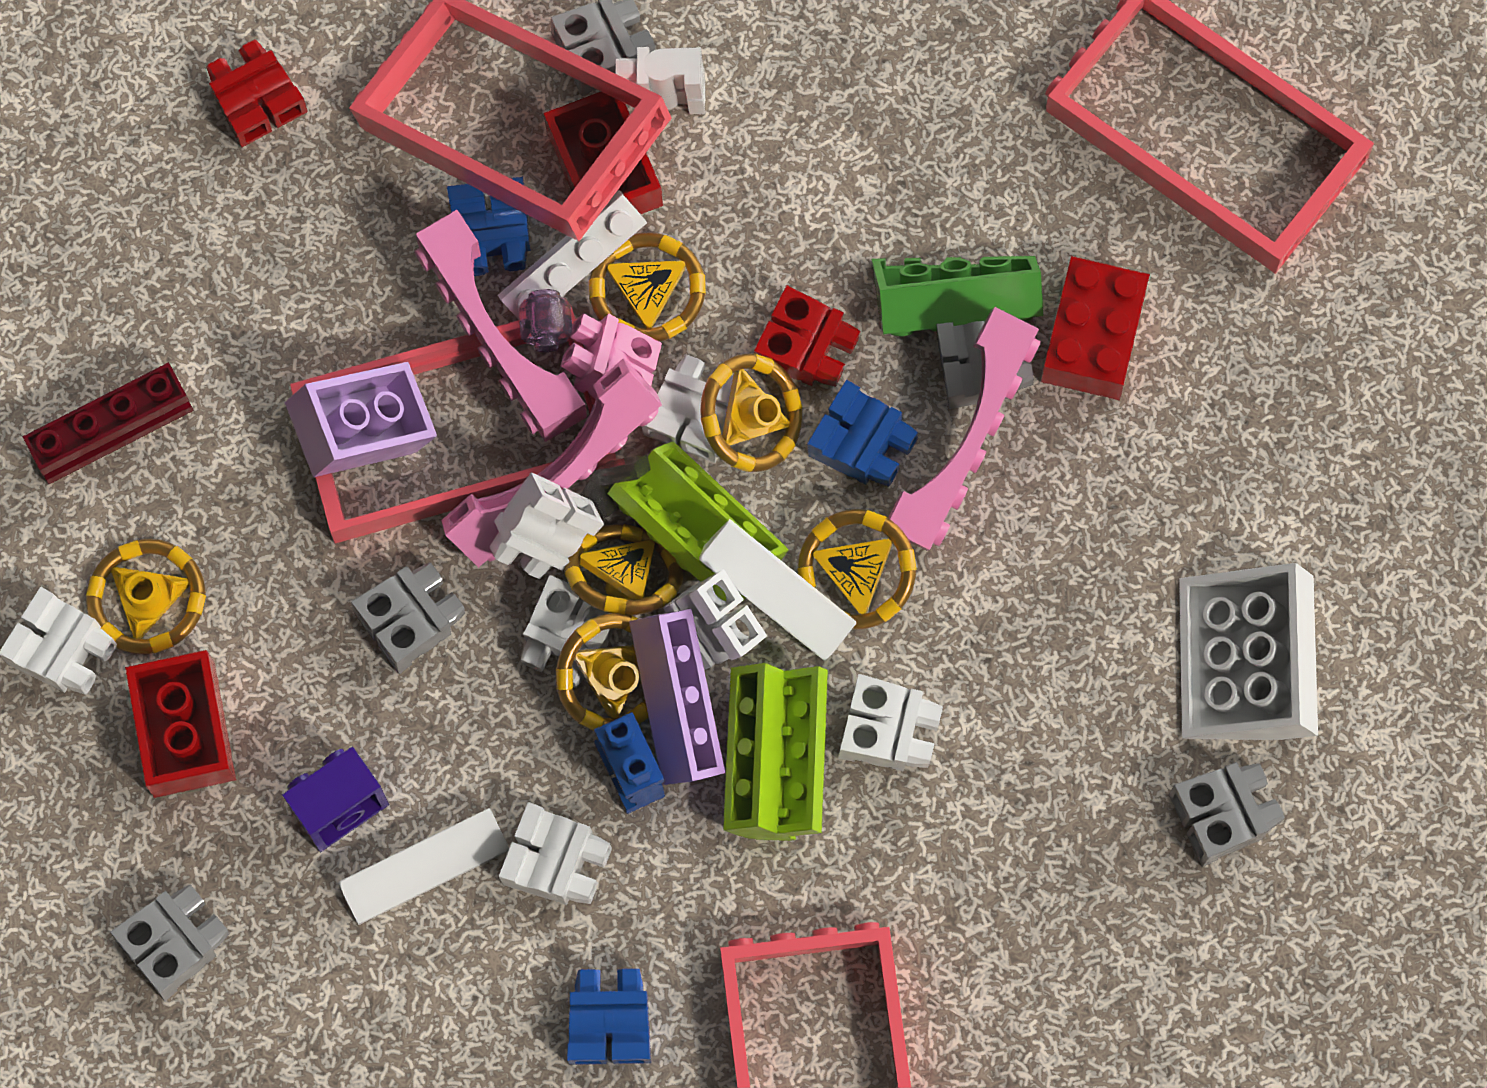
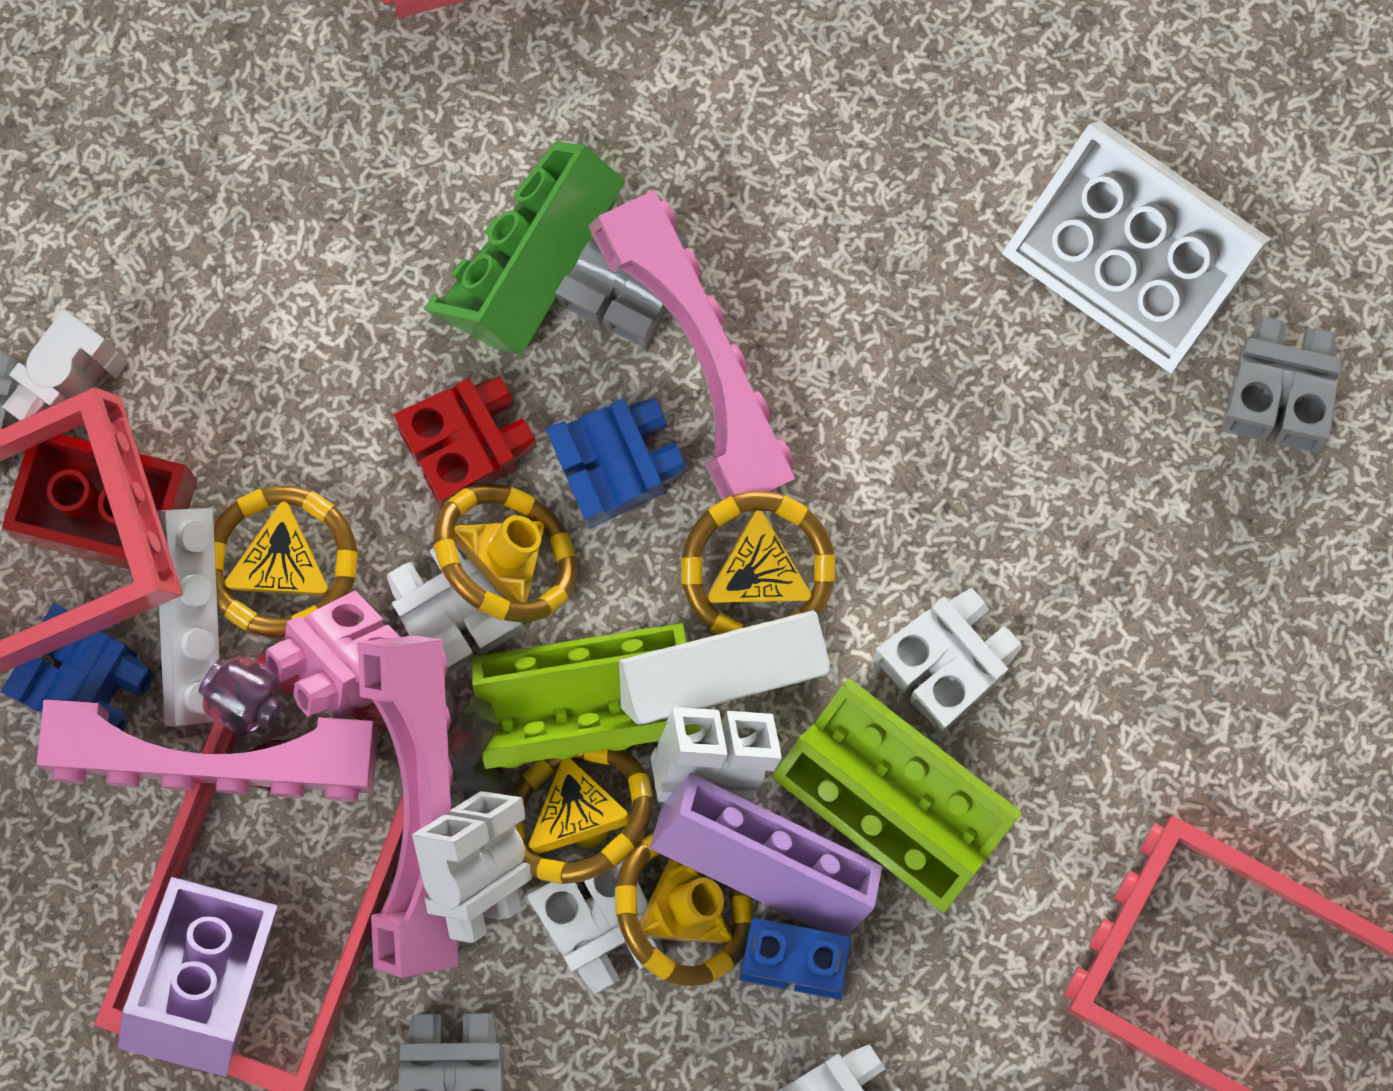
camera: 50 degrees left, 5 degrees up
(1095, 328) = (678, 138): red brick -> none

